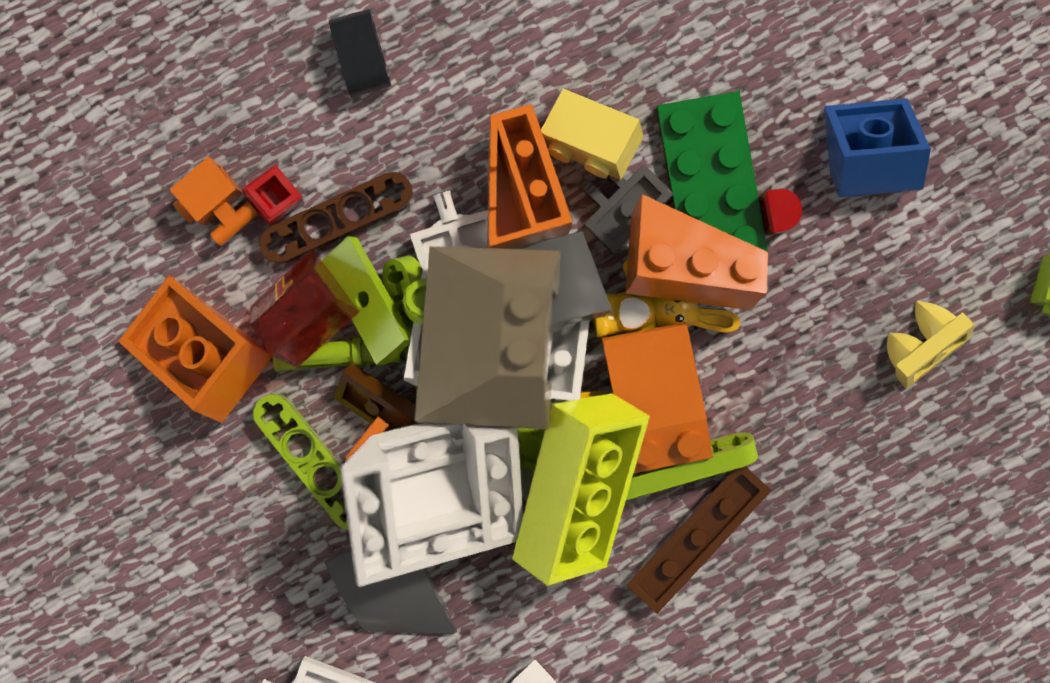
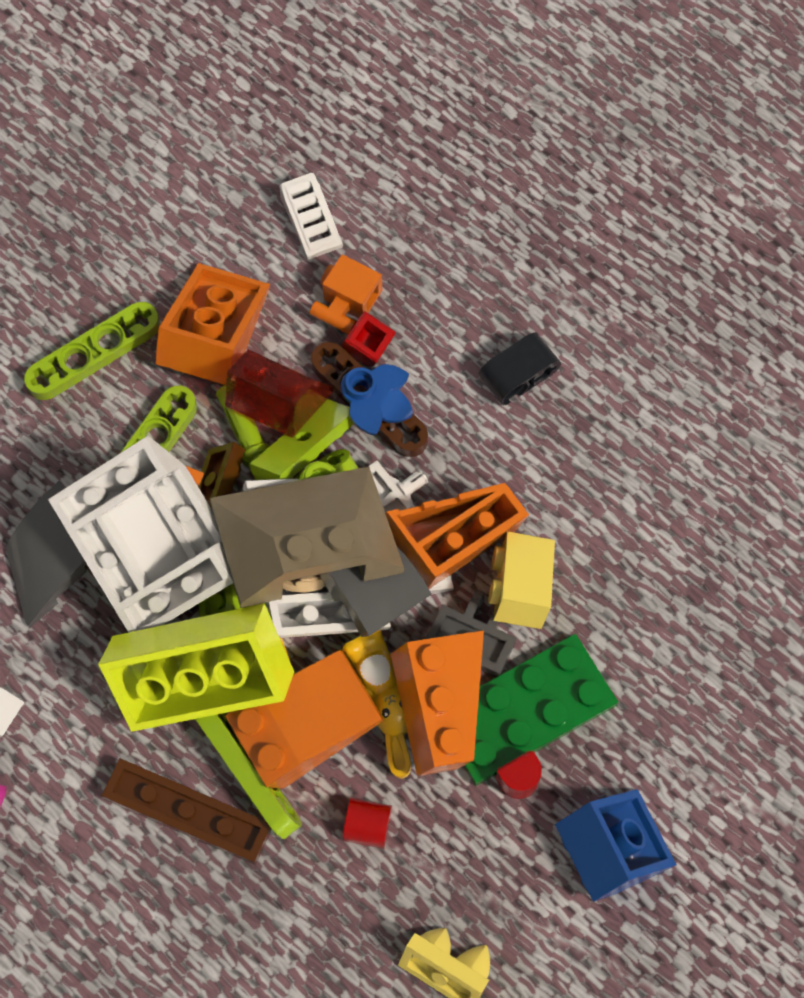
camera: 75 degrees right, 20 degrees down
(69, 206) = (304, 193): none -> white slope
(173, 483) = (89, 346): none -> lime beam
(348, 206) = (380, 401): none -> blue plate
(767, 370) = (367, 823): none -> red brick

